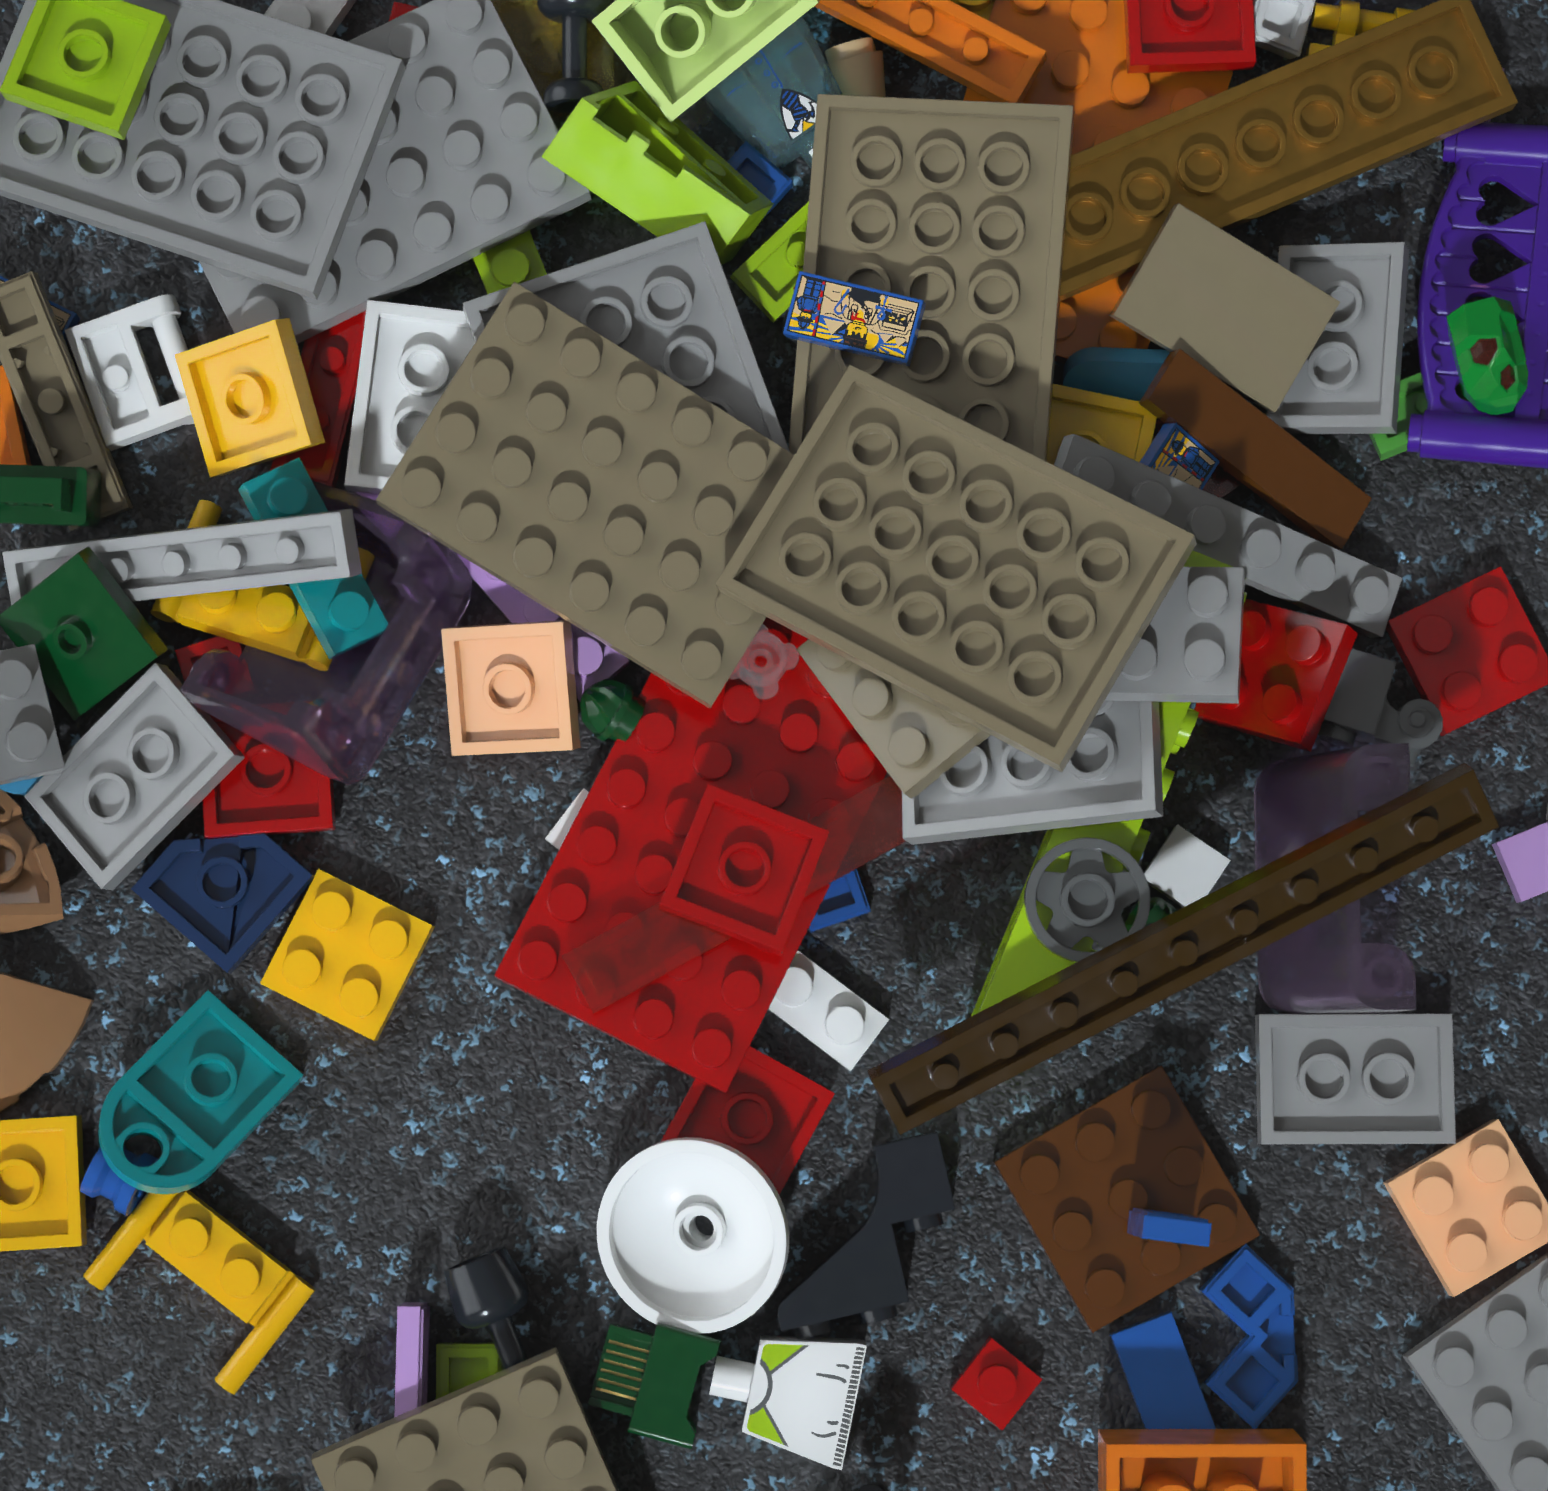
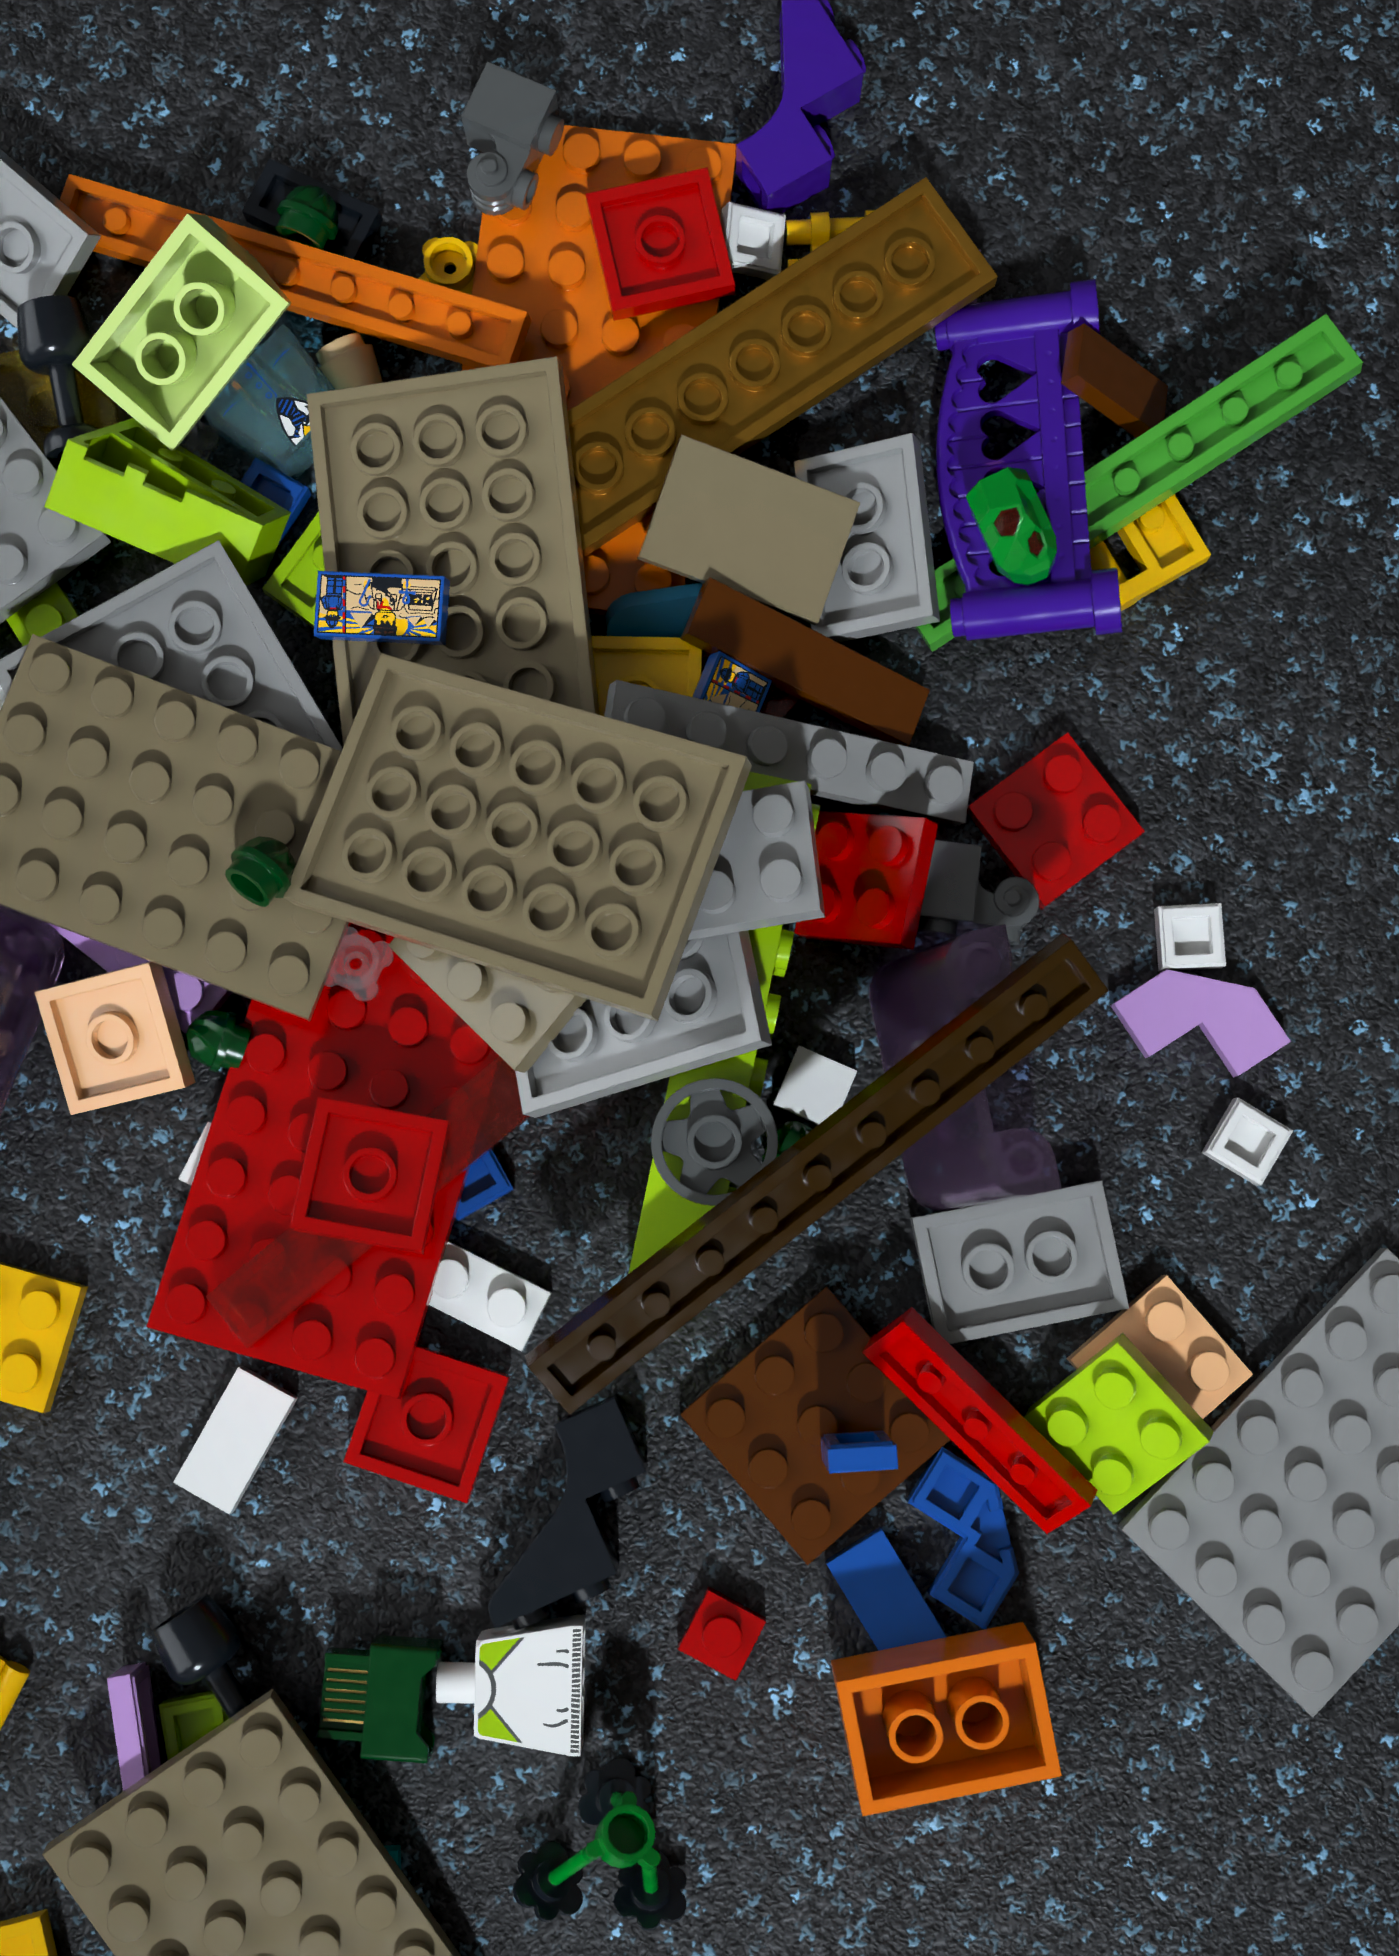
camera: 10 degrees left, 0 degrees up
(555, 1103) = (235, 1439): none -> white tile
(661, 1257) = (366, 1572): white dish -> none
(697, 554) = (261, 870): none -> dark green plate
(1288, 1224) = (980, 1421): none -> red plate
(1424, 1253) = (1119, 1423): none -> lime plate

